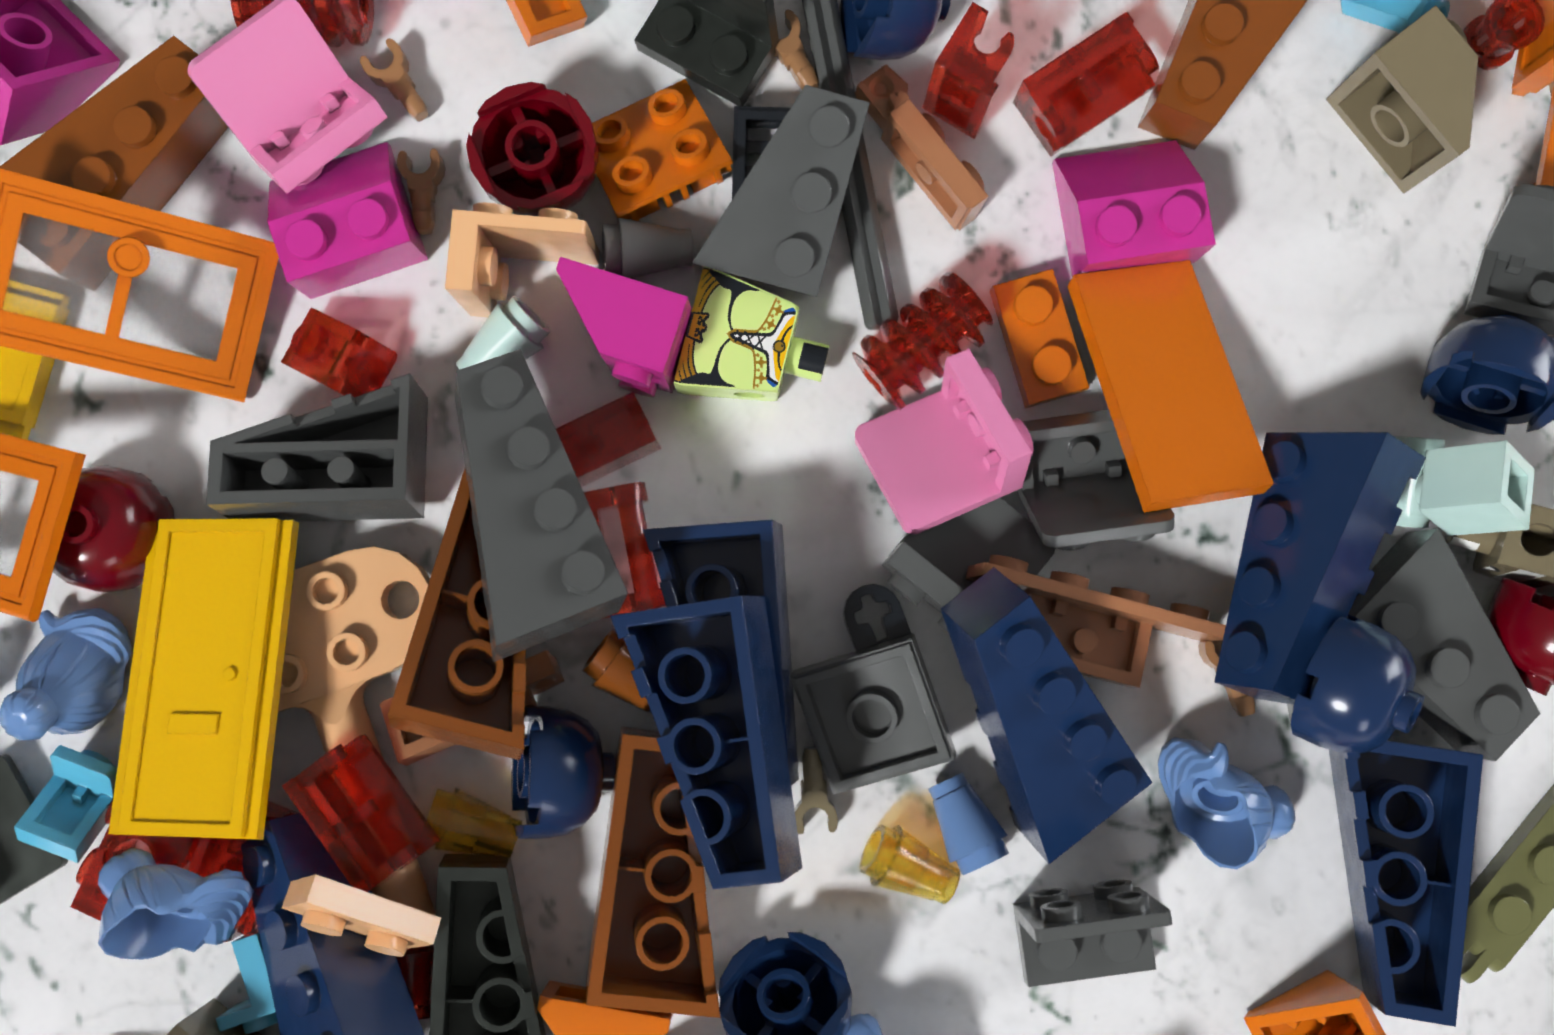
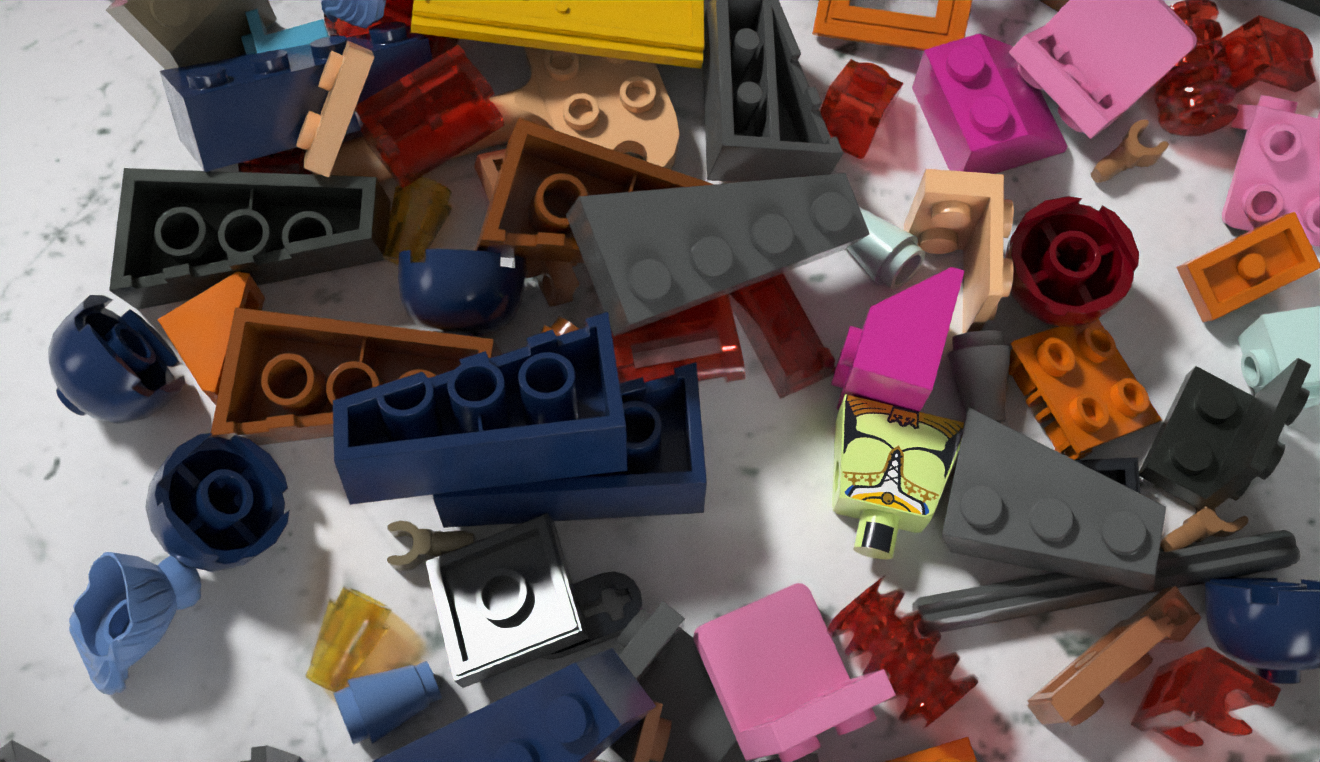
camera: 90 degrees right, 15 degrees down
(422, 189) = (1027, 176): medium nougat piece -> none

